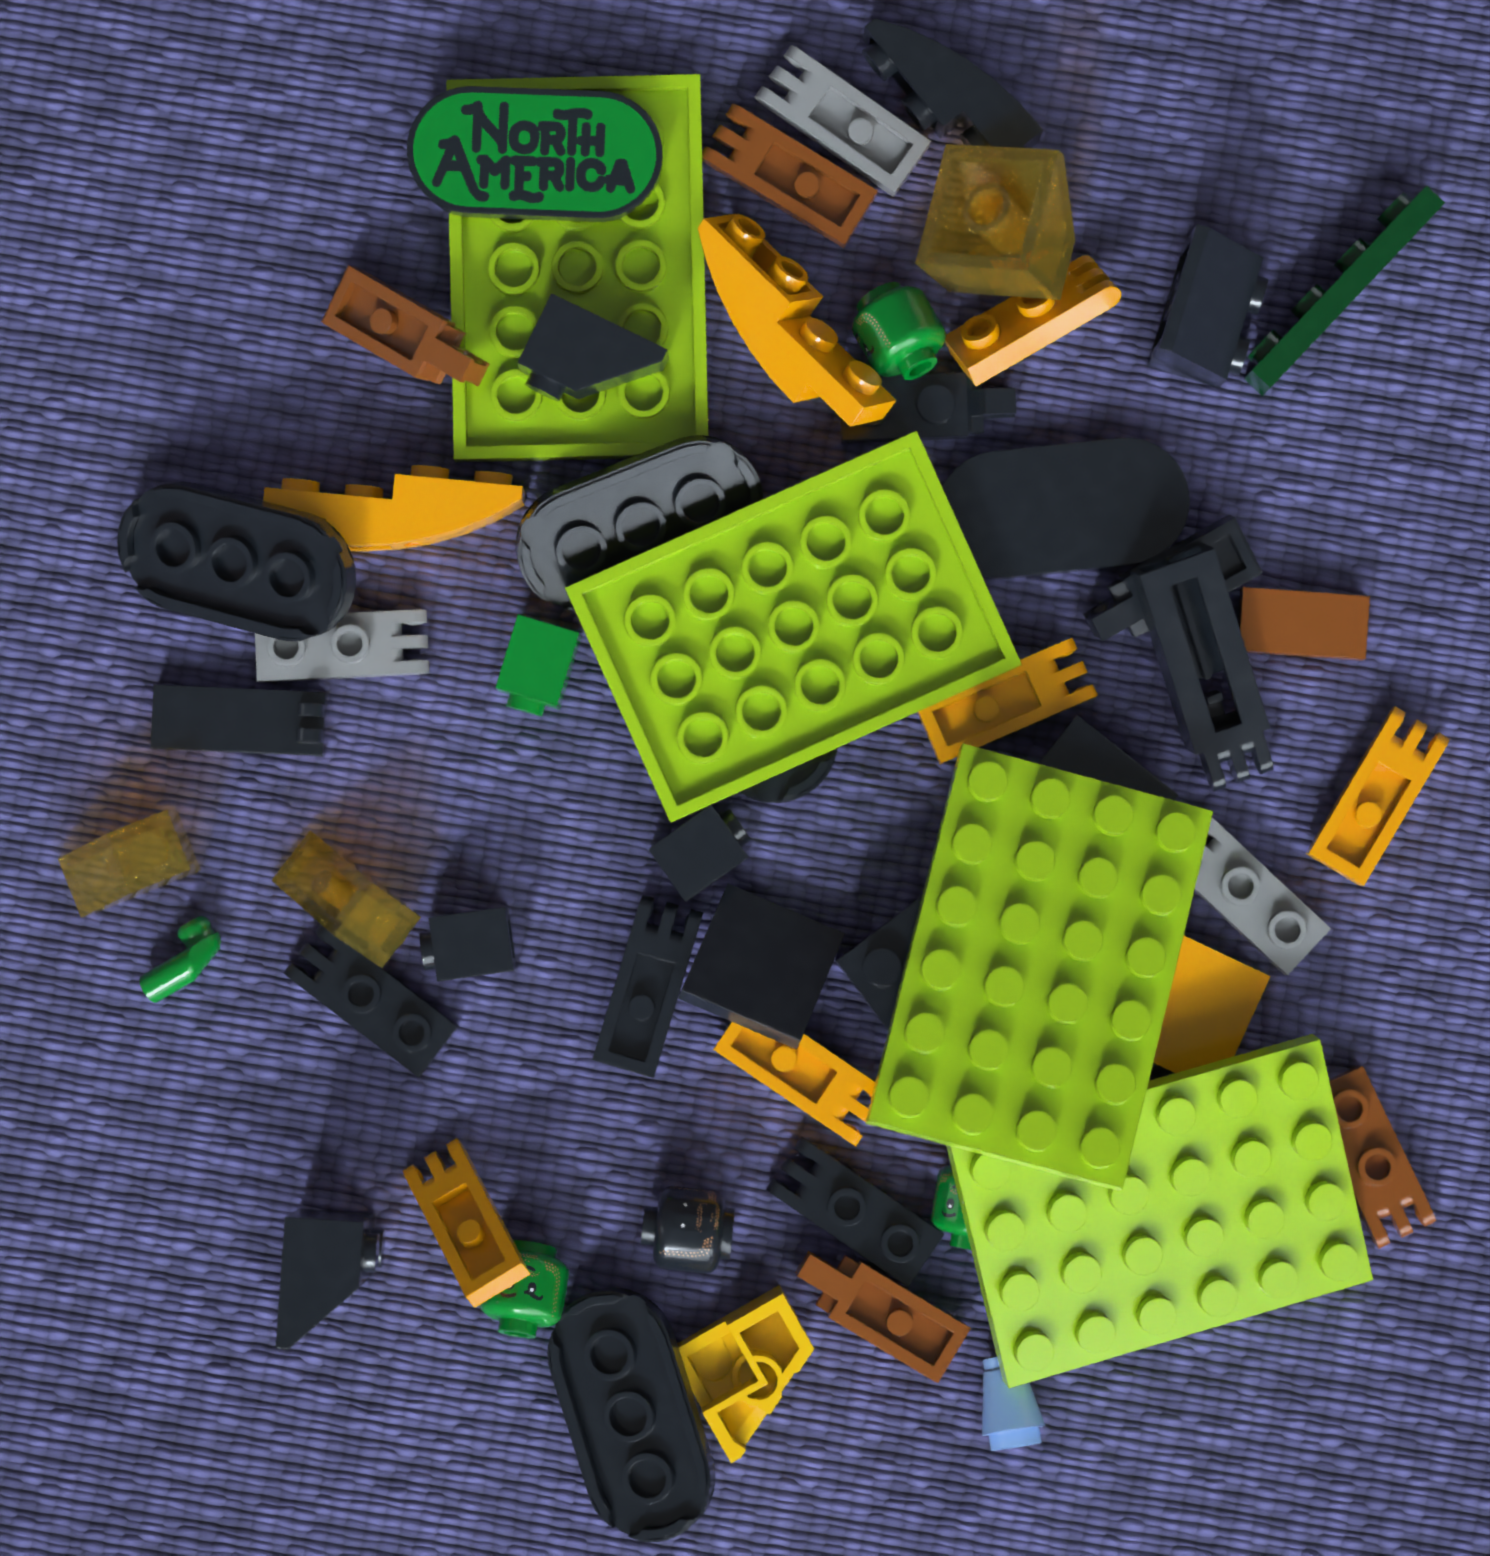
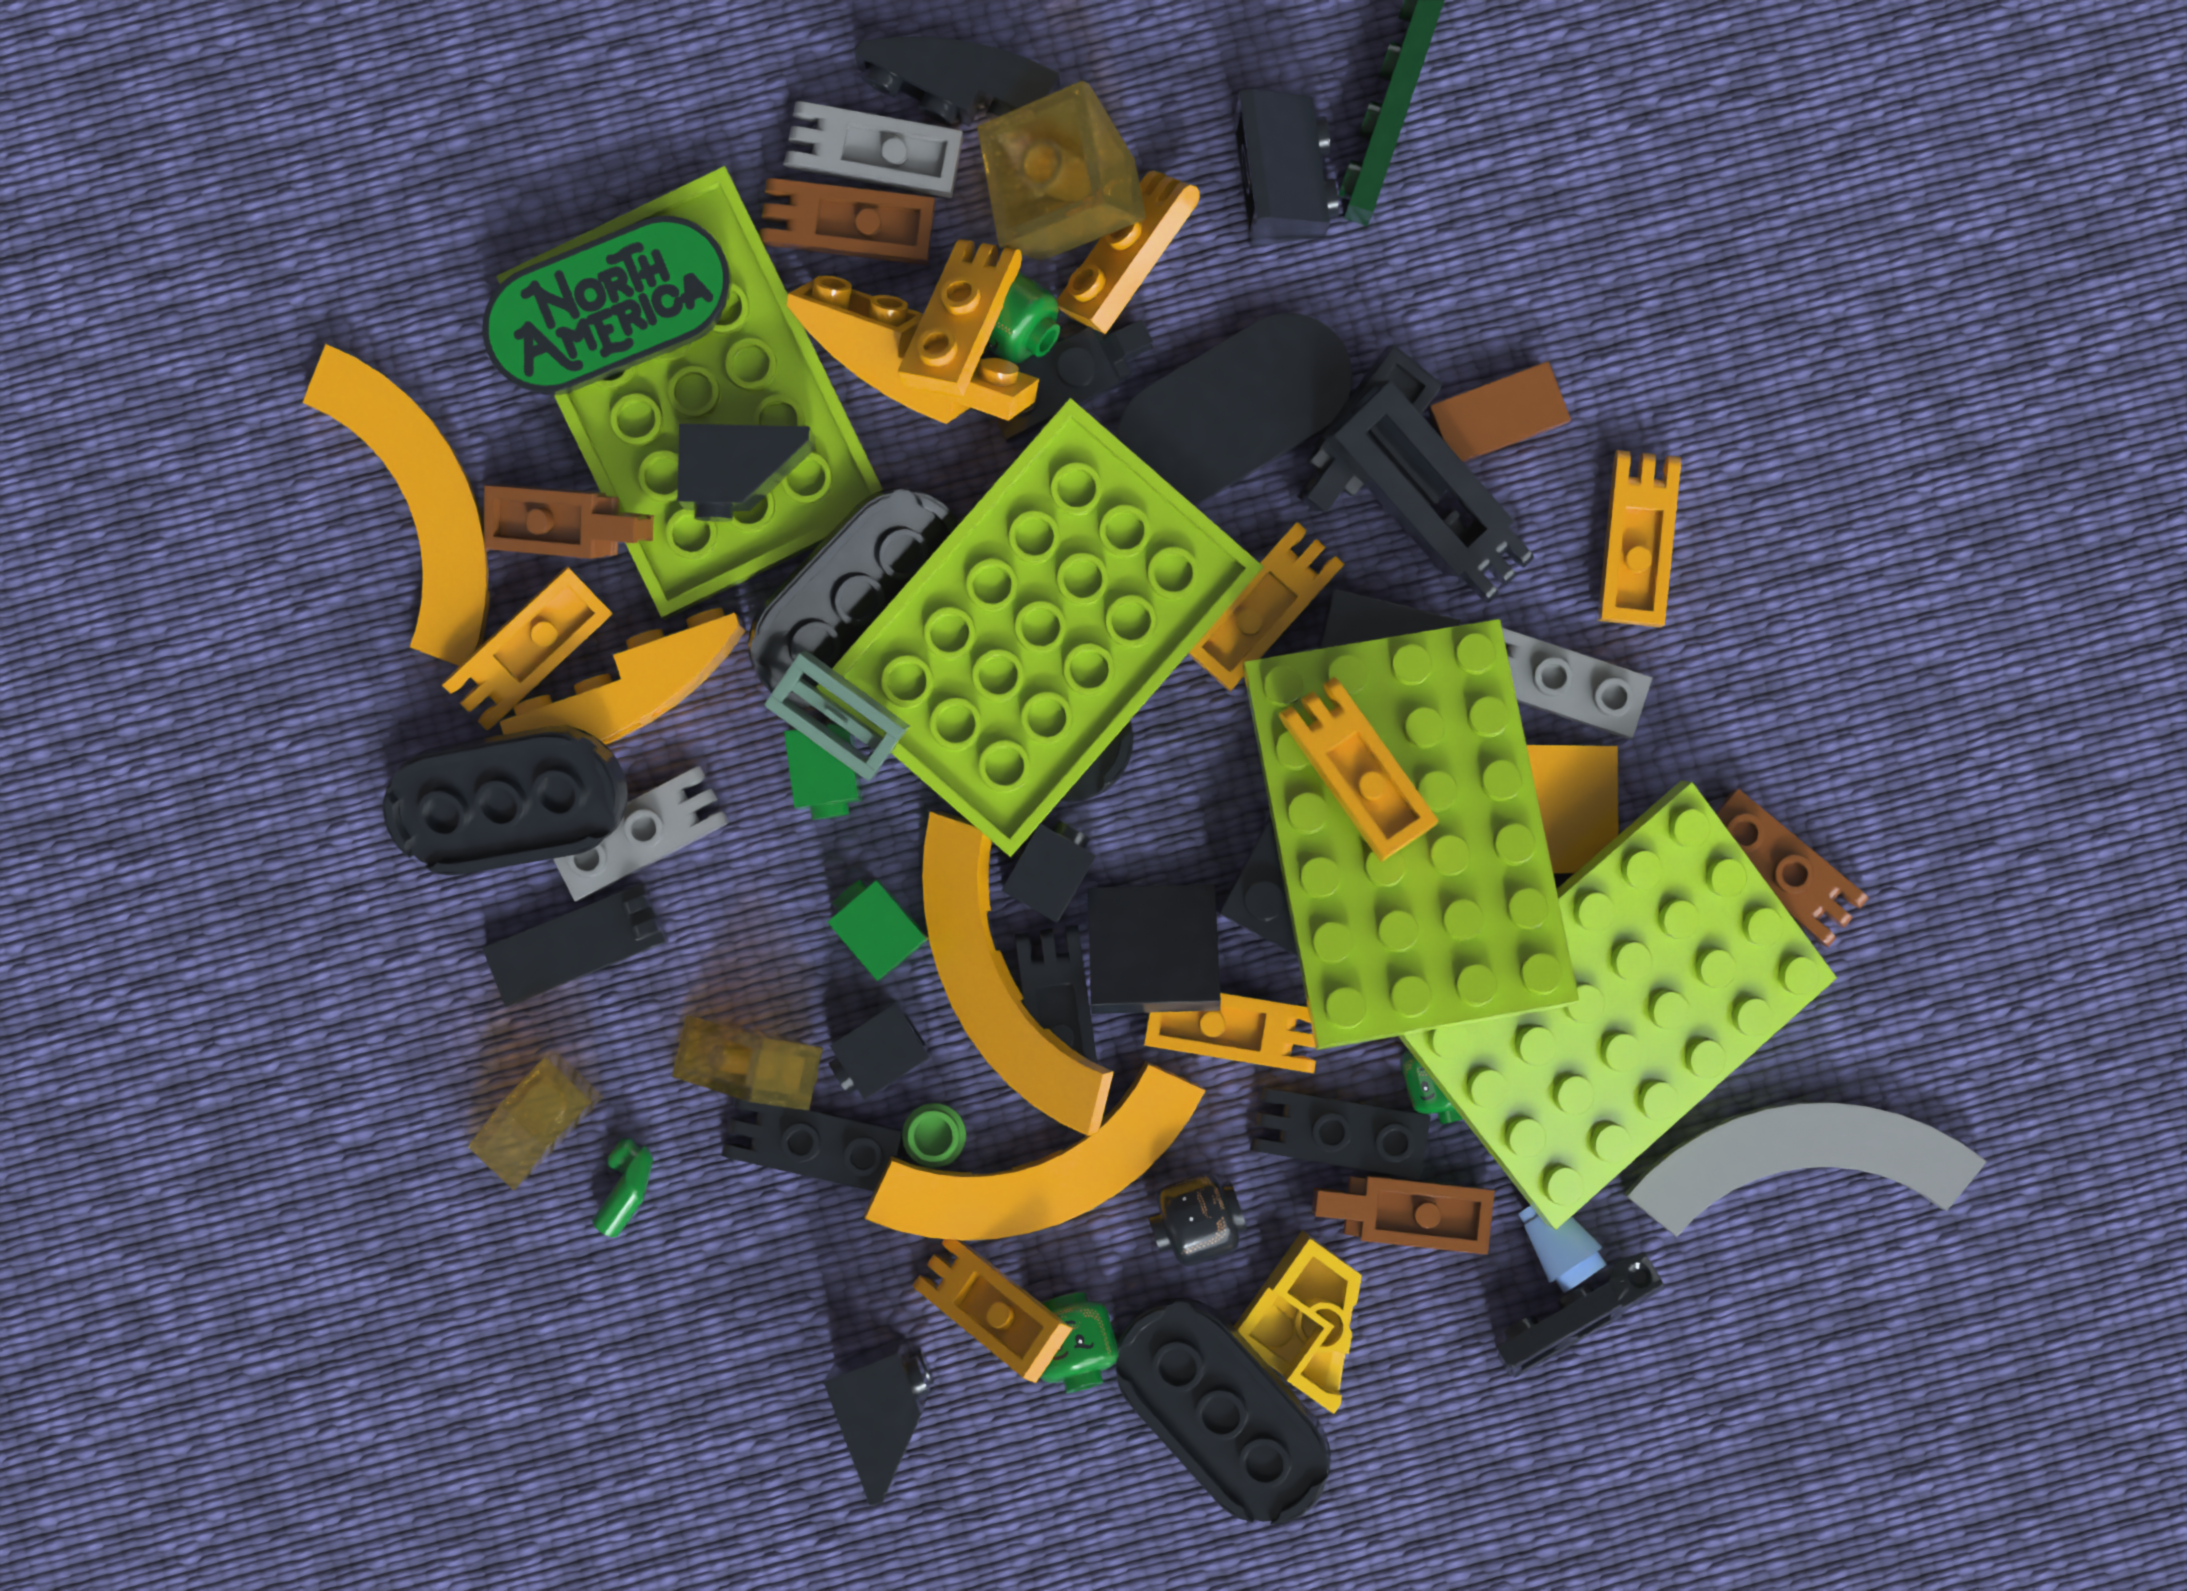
camera: 25 degrees left, 0 degrees up
(301, 250) = (436, 491): none -> light orange tile
(322, 430) = (529, 646): none -> light orange hinge
(485, 1043) = (934, 1135): none -> bright green plate
(519, 830) = (876, 927): none -> green brick
(567, 1139) = (1046, 1189): none -> light orange tile
(591, 935) = (984, 992): none -> light orange tile
(592, 607) = (851, 695): none -> sand green tile
(848, 313) = (959, 318): none -> light orange hinge
(997, 1477) = (1580, 1315): none -> black hinge
(1020, 890) = (1360, 771): none -> light orange hinge
(1271, 1409) = (1798, 1138): none -> light grey tile

